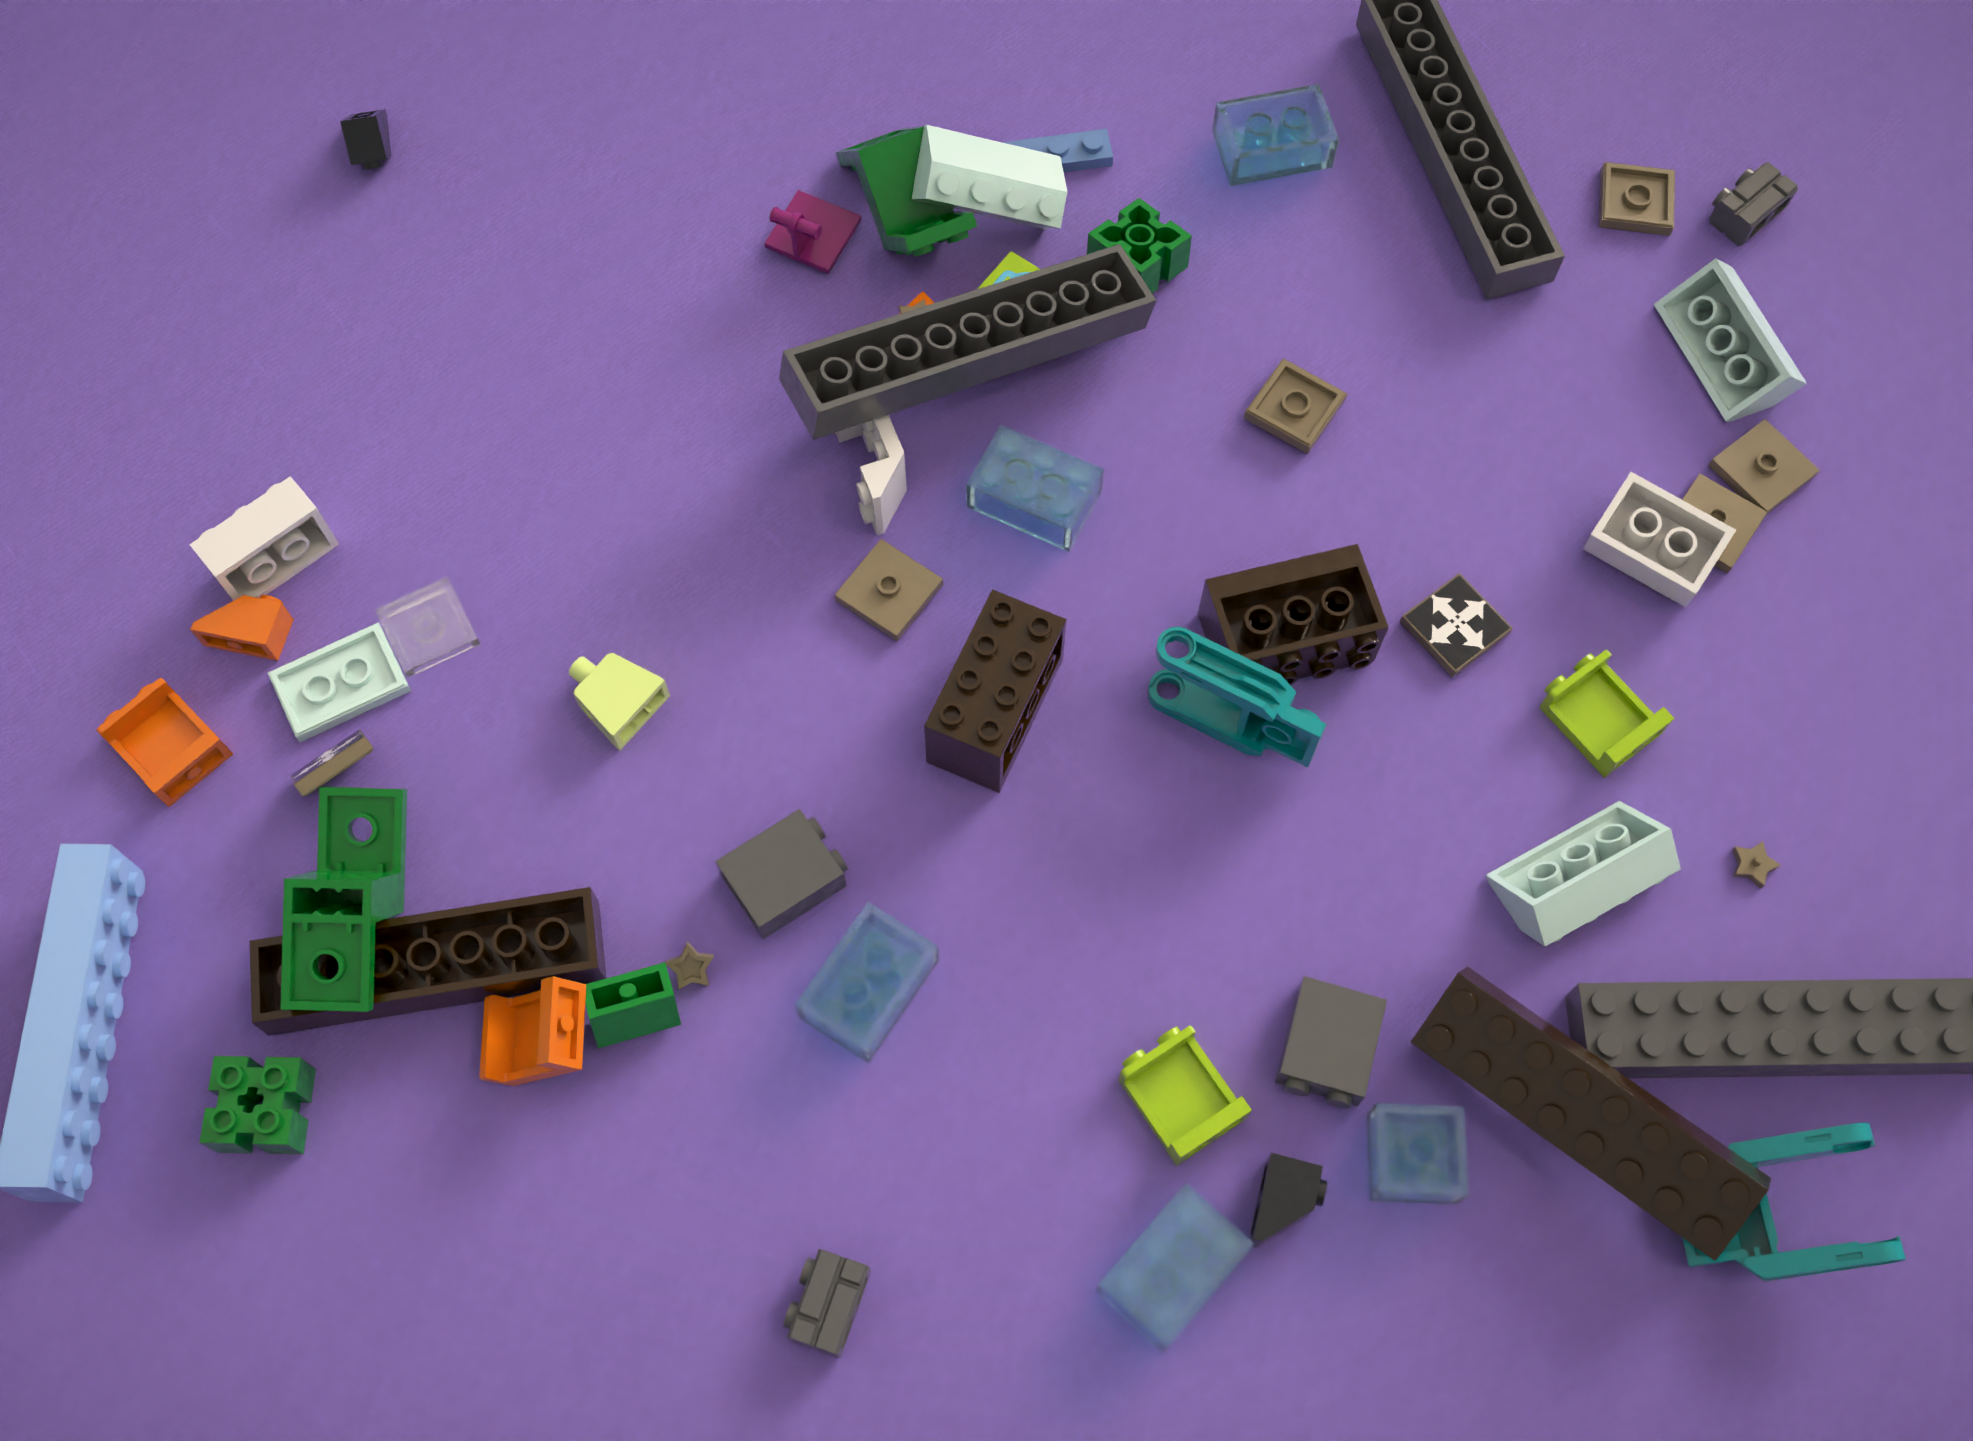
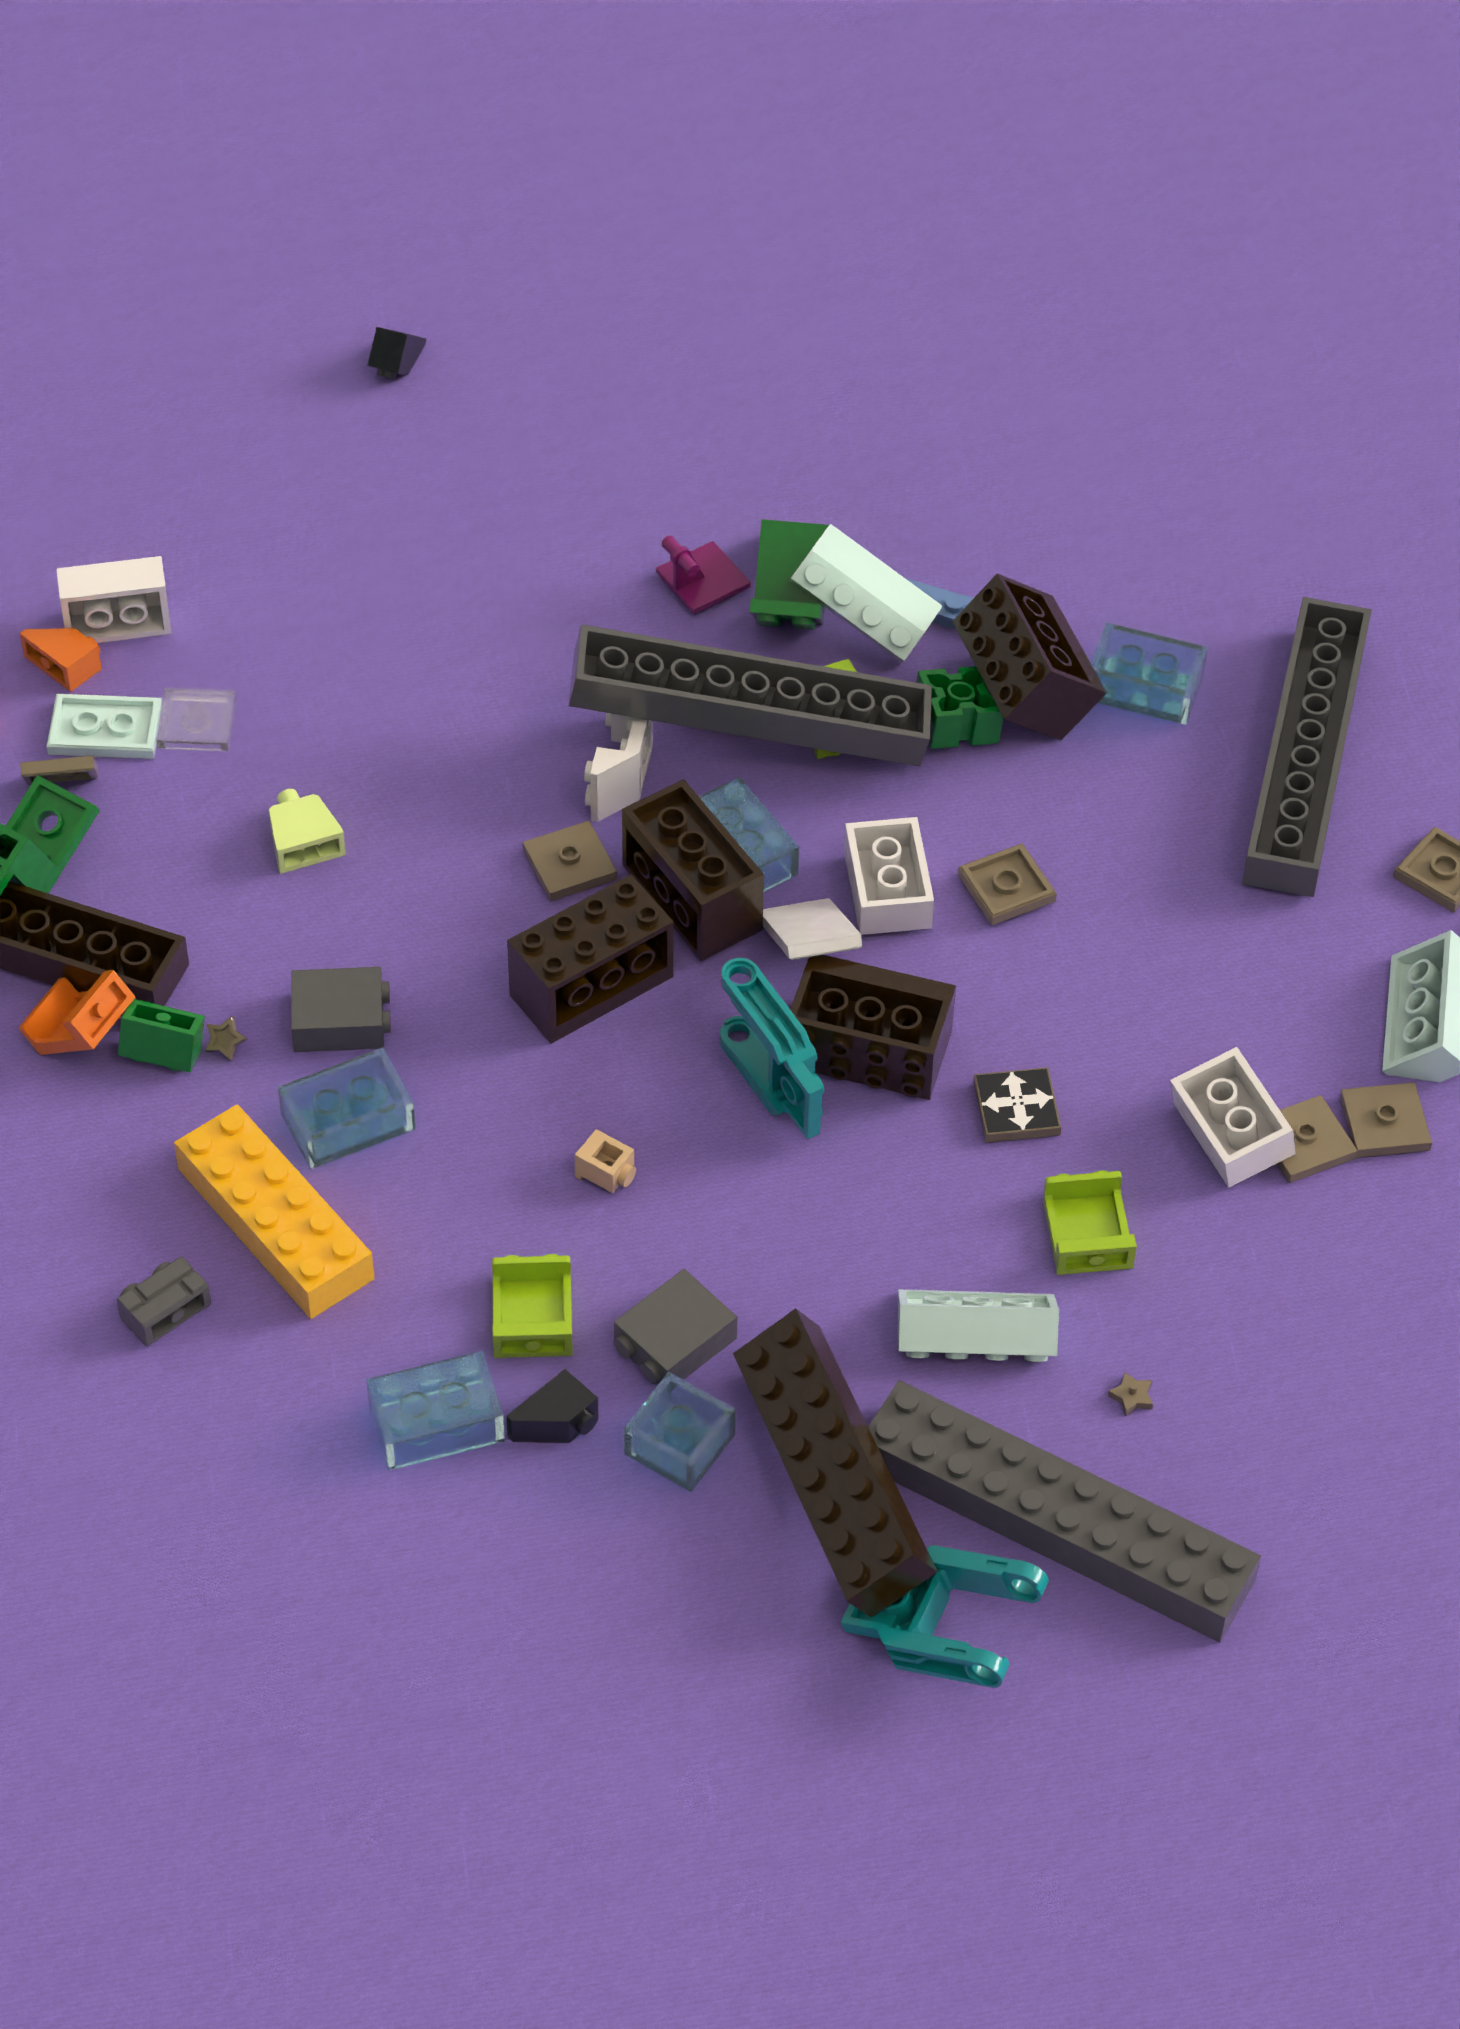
camera: 30 degrees right, 15 degrees down
(870, 1136) = (274, 1211): none -> yellow brick
(1027, 544) = (693, 869): none -> dark brown brick
(1140, 885) = (605, 1162): none -> tan brick
(1175, 551) = (810, 929): none -> white tile
(1177, 170) = (1029, 657): none -> dark brown brick
(1196, 454) = (888, 876): none -> white brick

